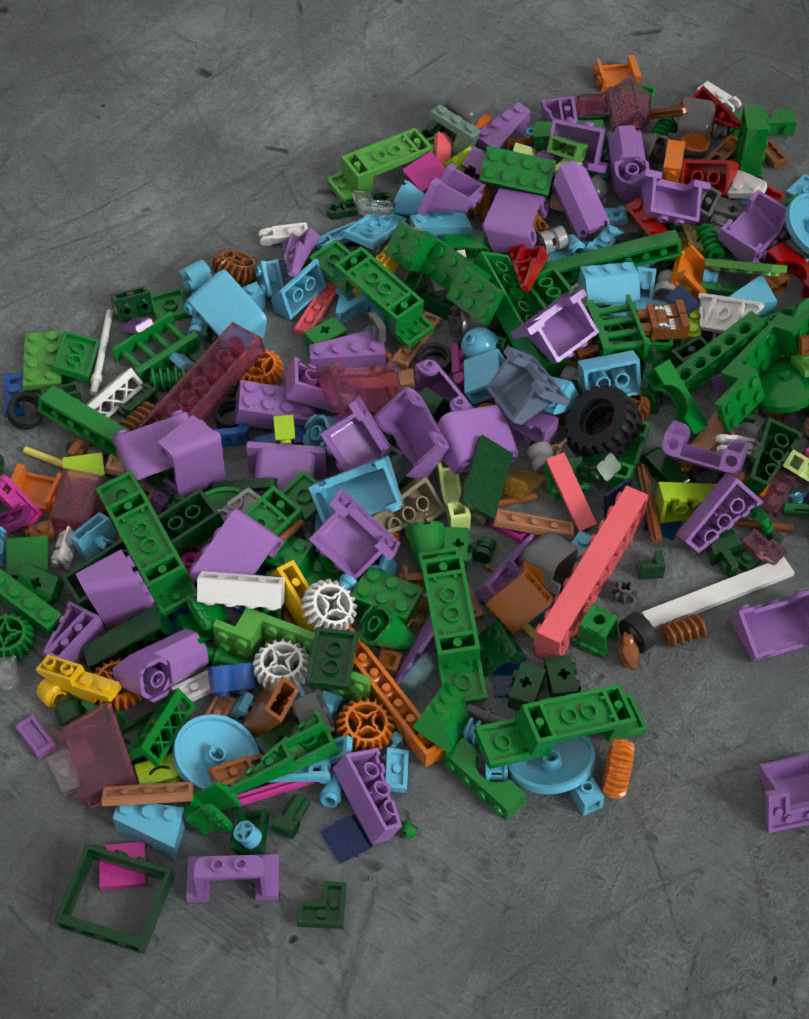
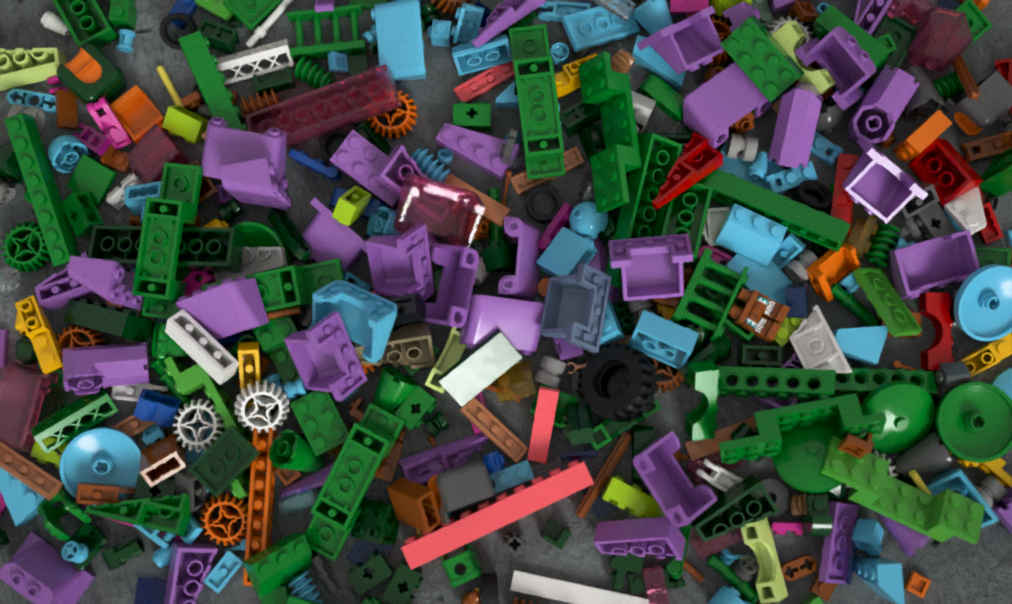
camera: 40 degrees right, 30 degrees up
(572, 149) = (827, 65): bright green torso -> none

